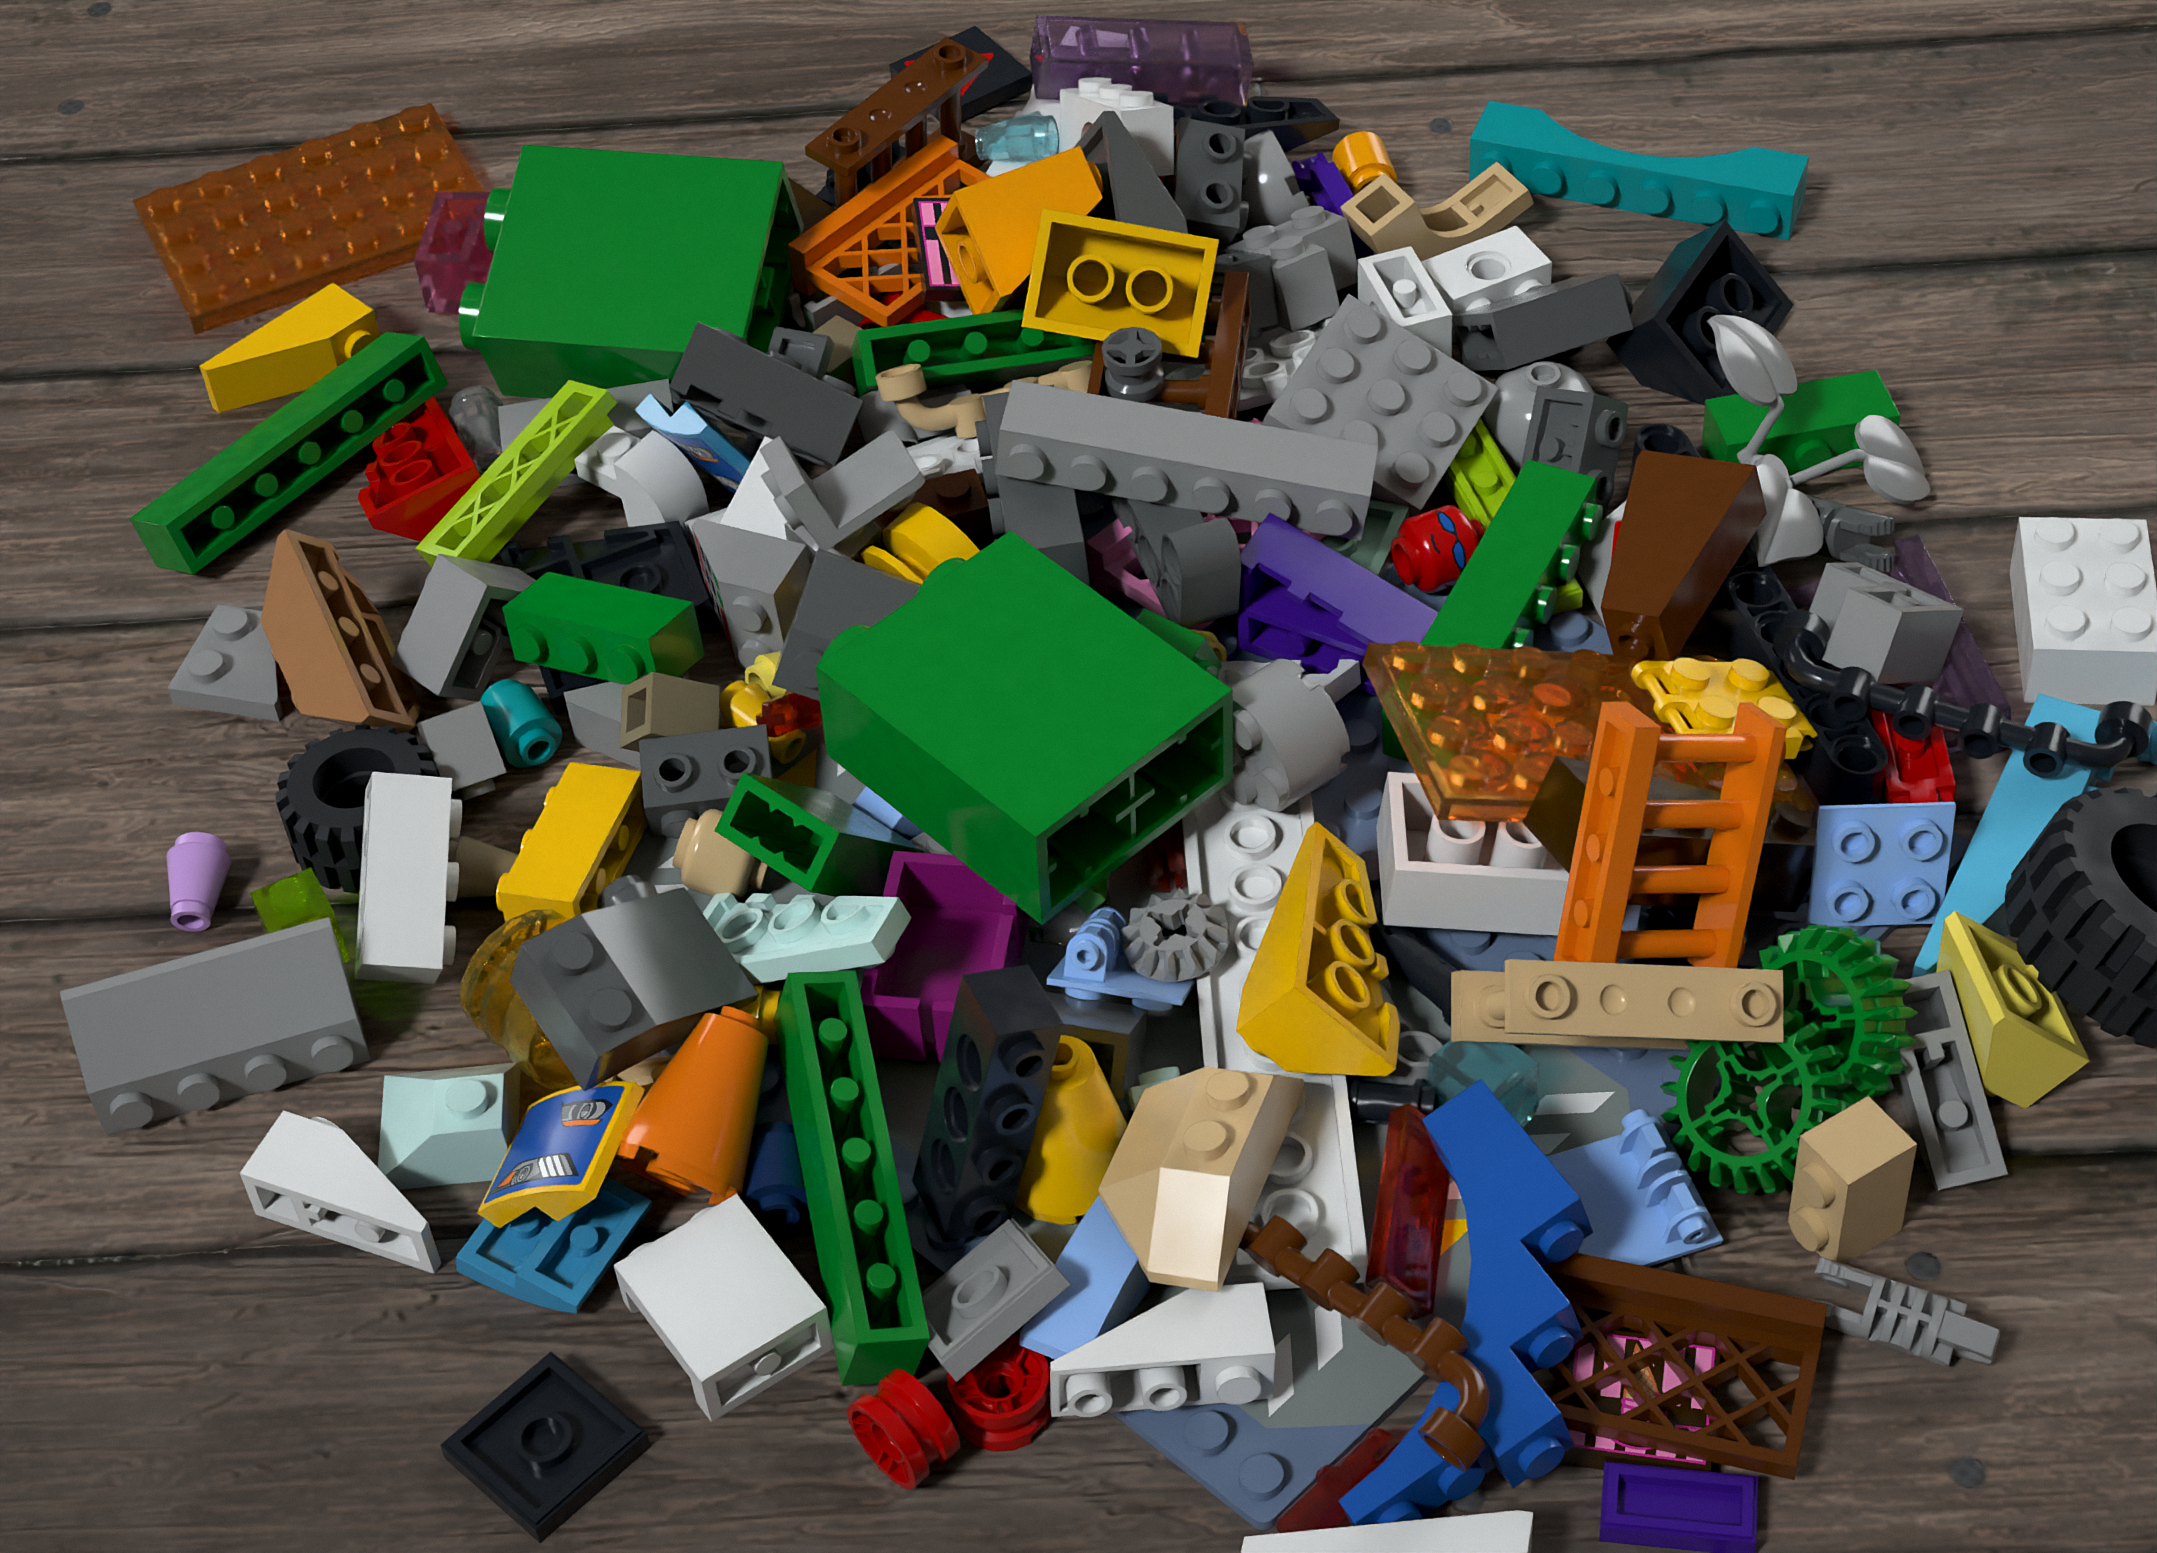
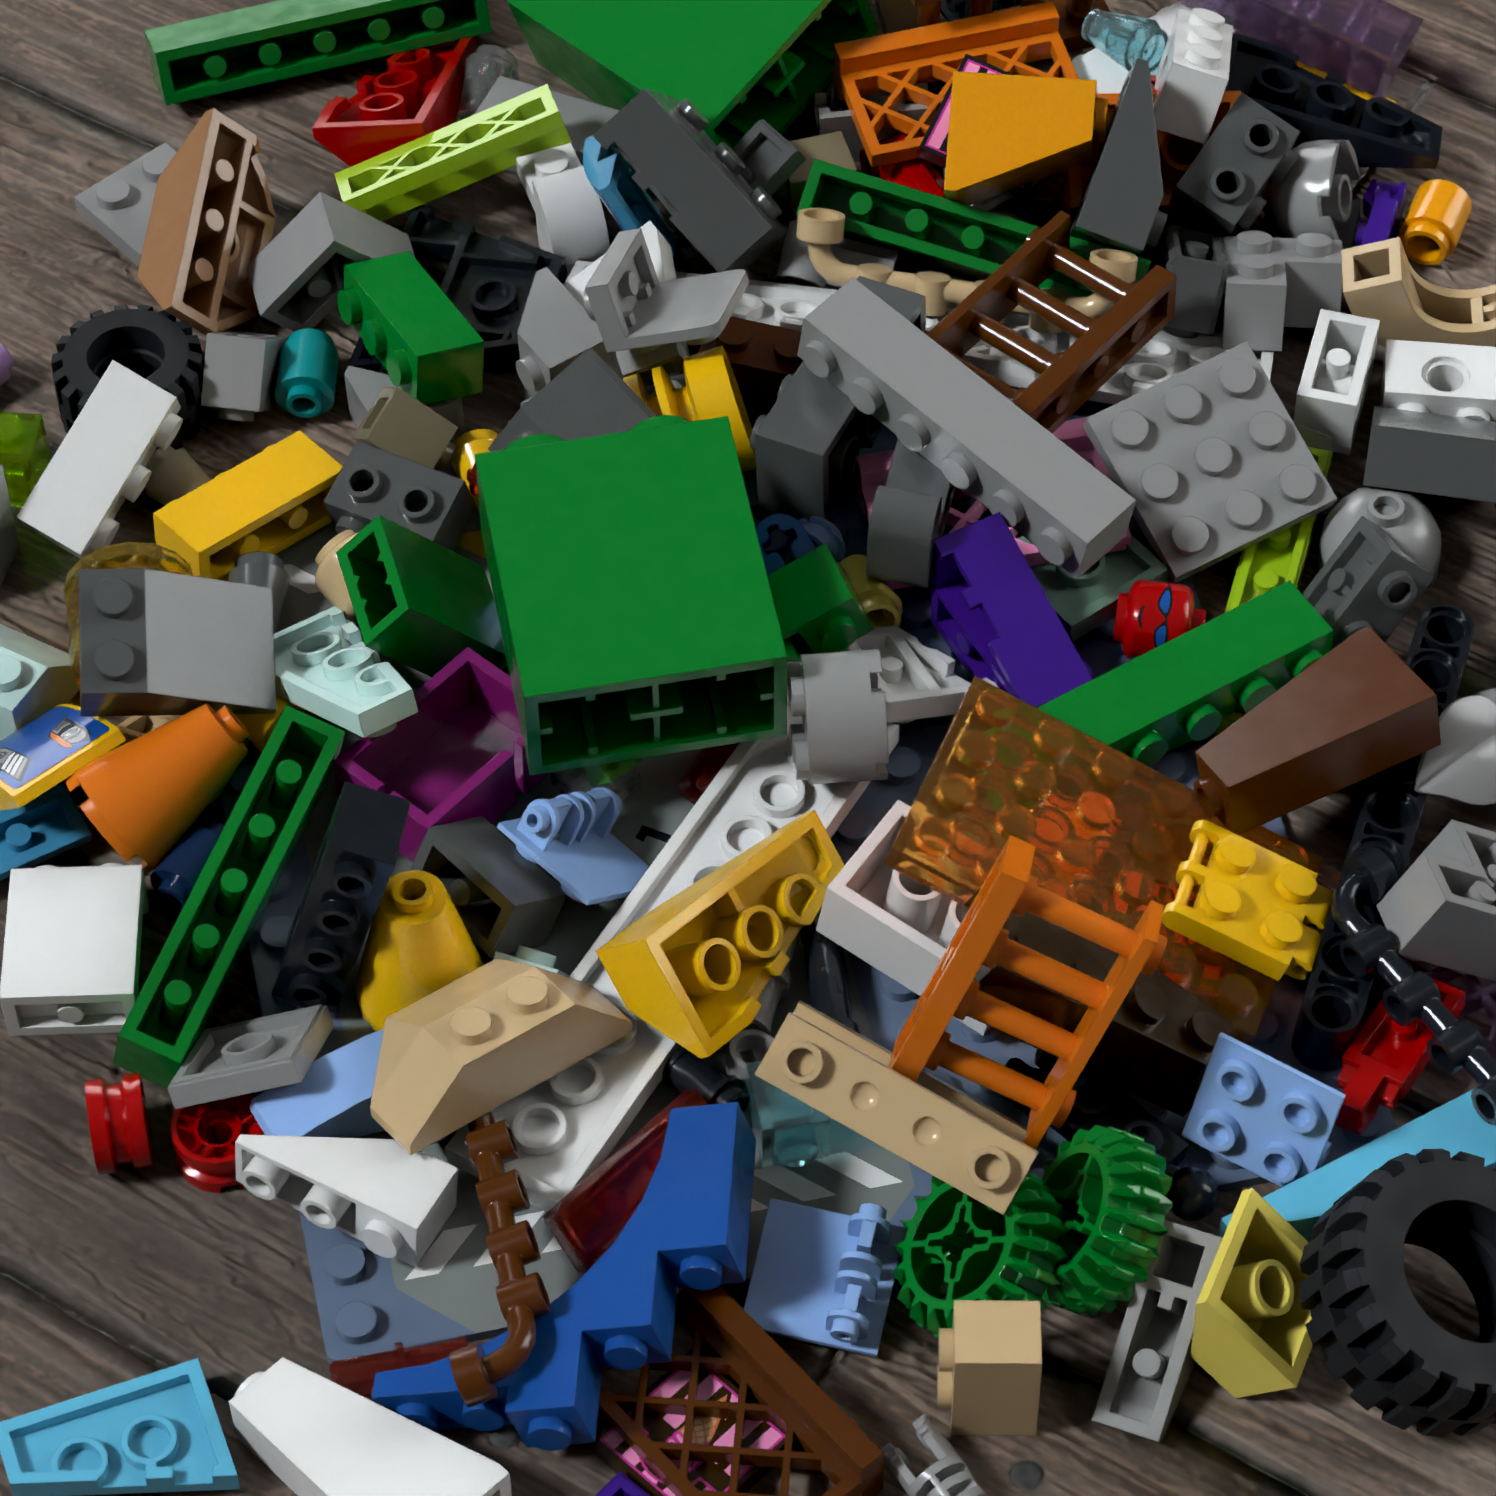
camera: 30 degrees right, 5 degrees up
(1119, 275) = (1042, 230): yellow slope -> none
(1133, 364) = (999, 313): dark grey wheel -> none
(1179, 956) = (623, 864): light grey gear -> none

